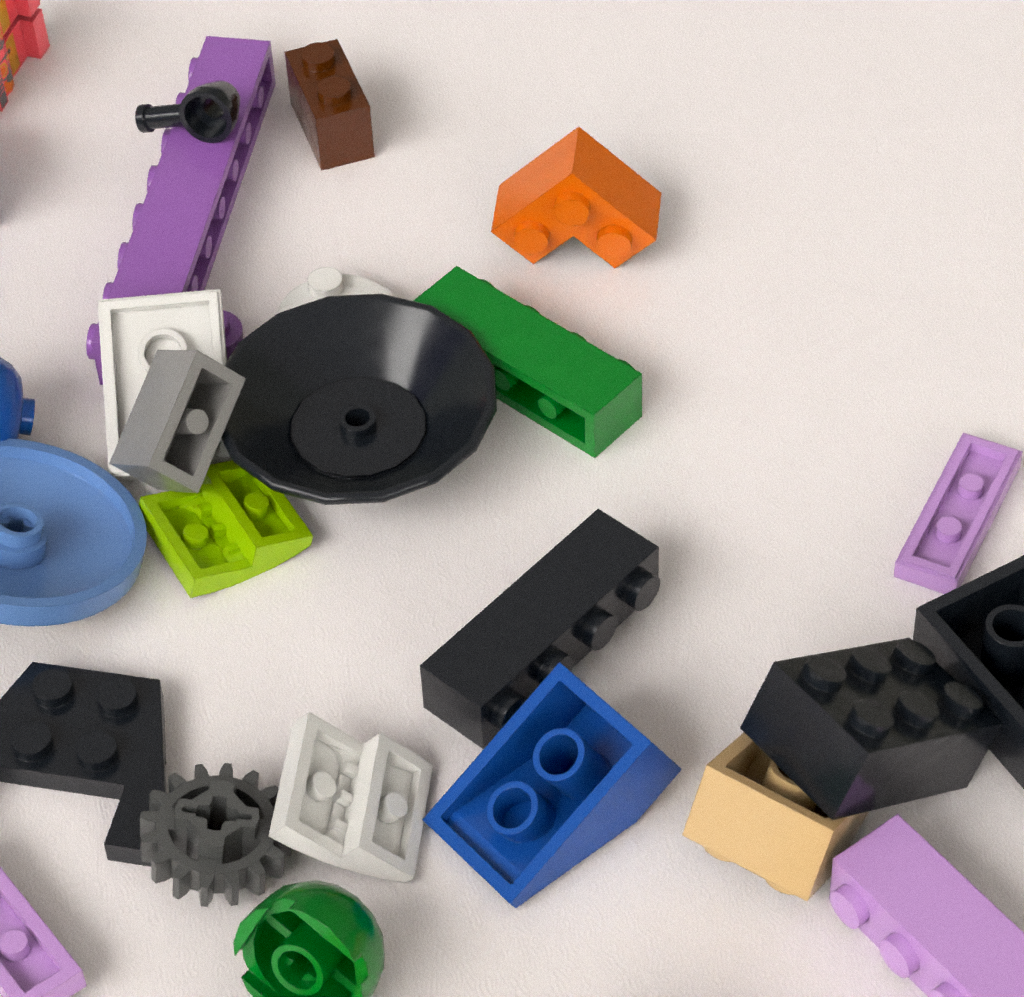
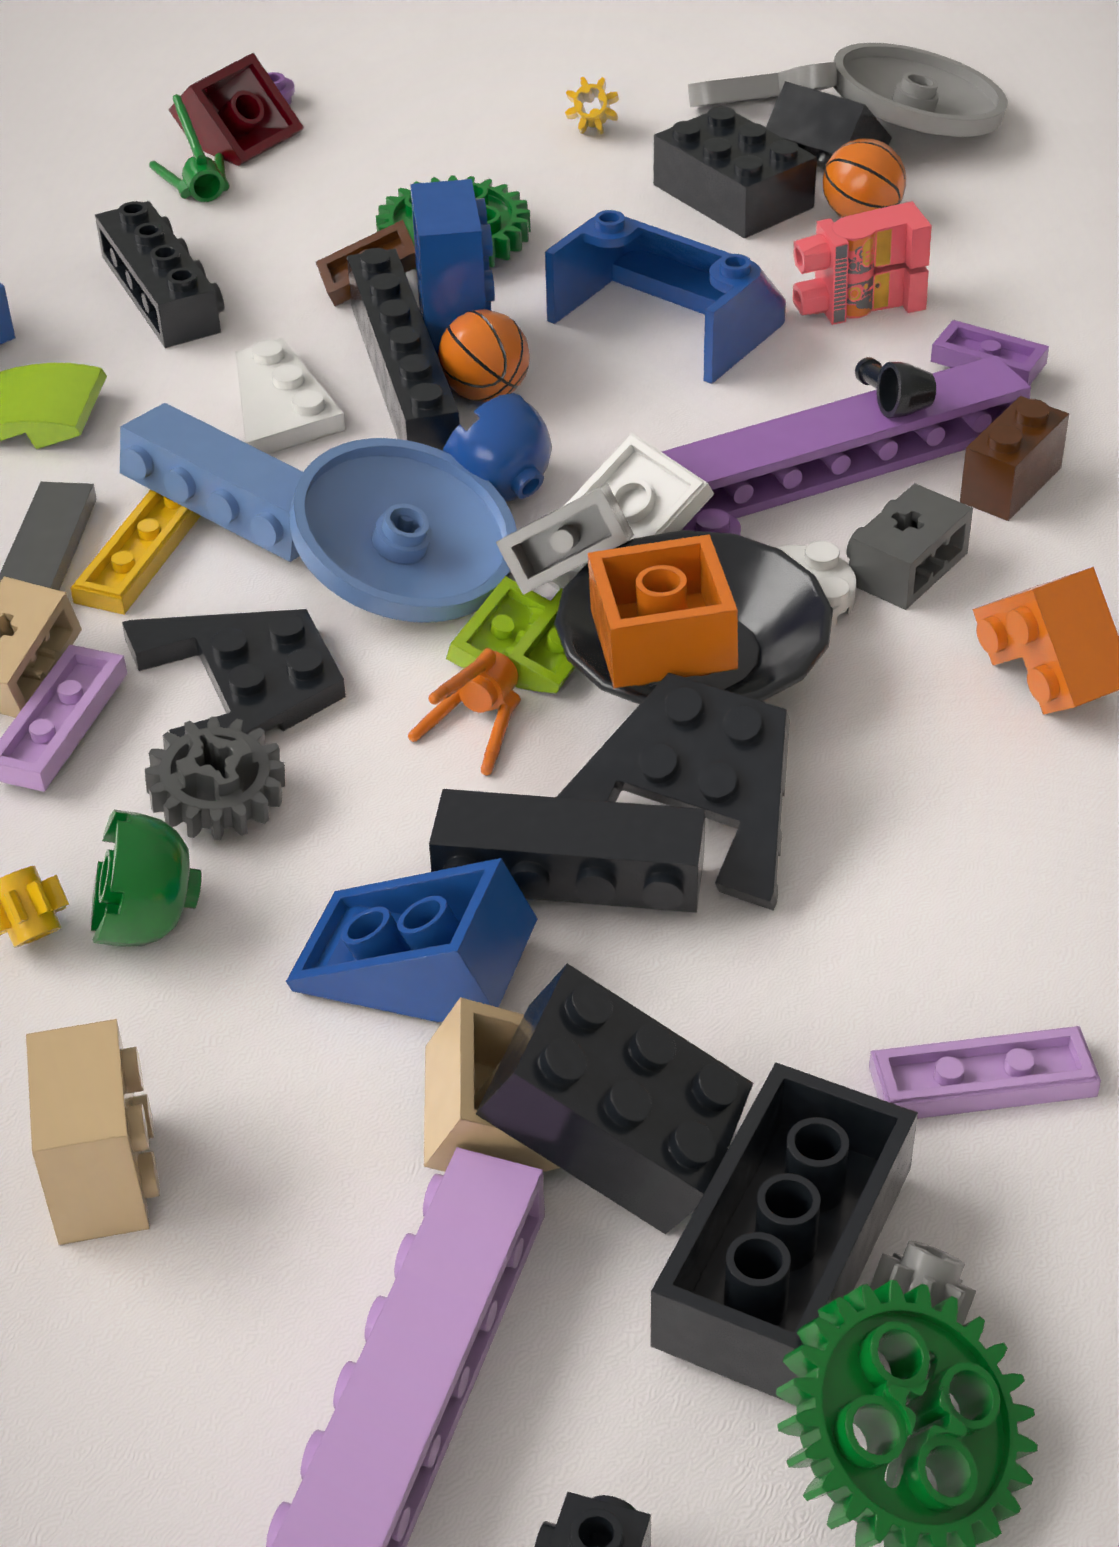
camera: 55 degrees right, 5 degrees down
(166, 42) = (968, 343): none -> medium lavender plate
(273, 587) = (482, 688): none -> orange plant
(352, 800) = (307, 834): white slope -> none
(366, 223) = (909, 545): none -> dark grey brick
(375, 399) = (663, 610): none -> orange brick
(527, 478) = (709, 753): none -> black wing
(542, 366) = (860, 711): green brick -> none

